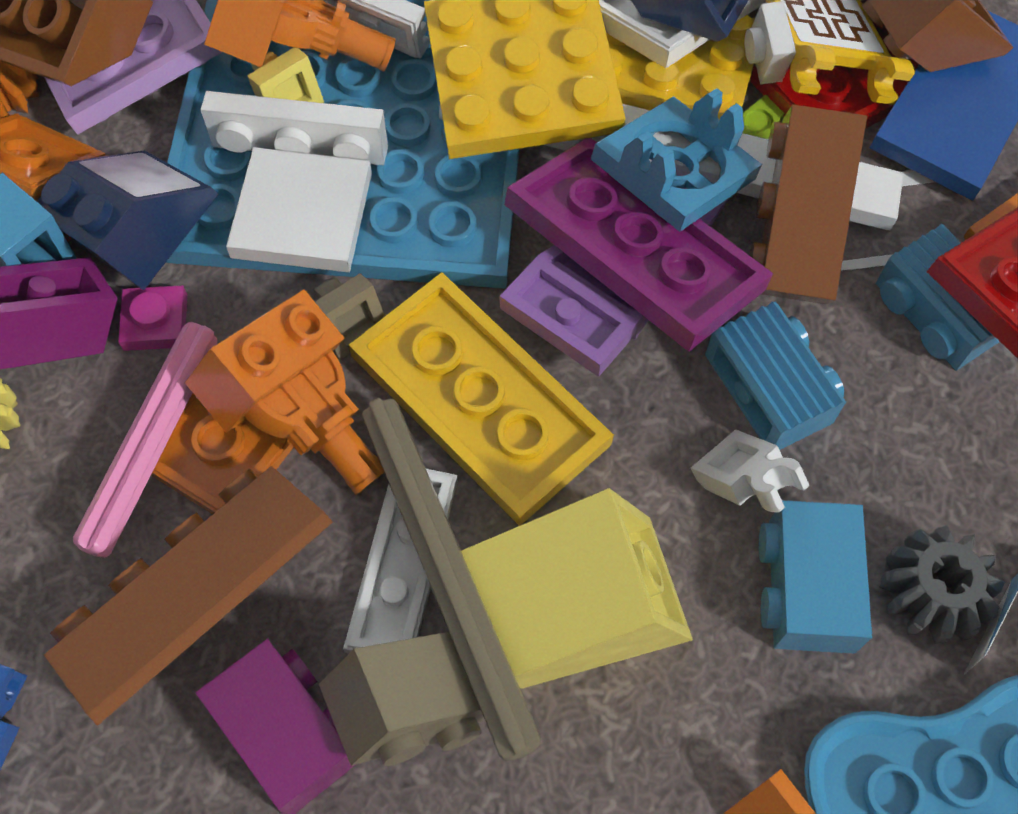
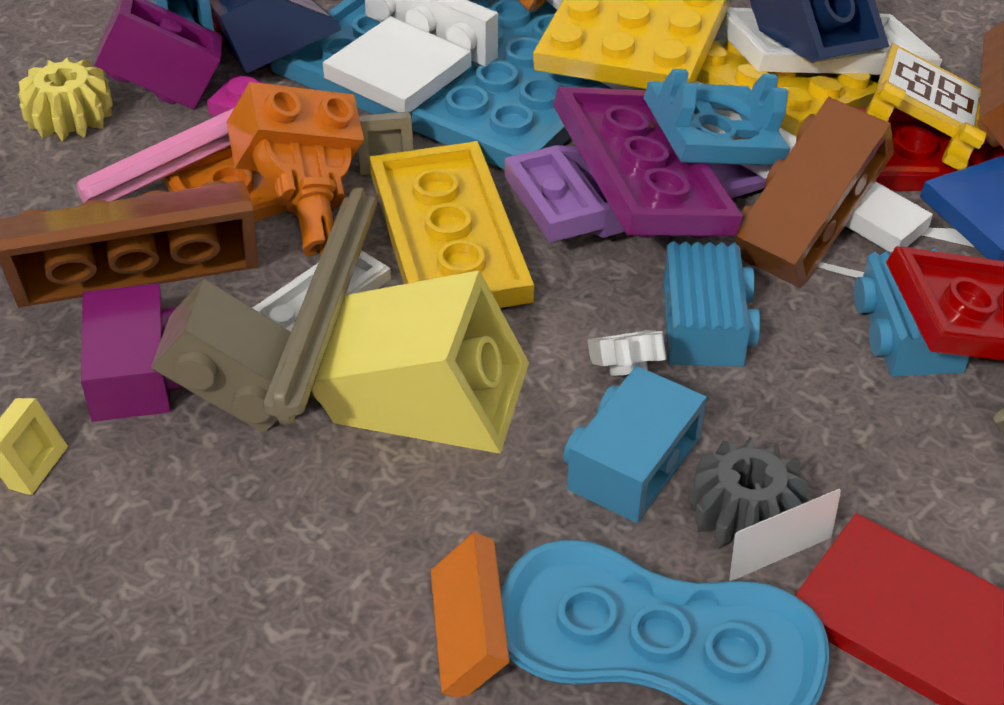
camera: 30 degrees right, 20 degrees down
(770, 42) = (861, 80): white plate -> none

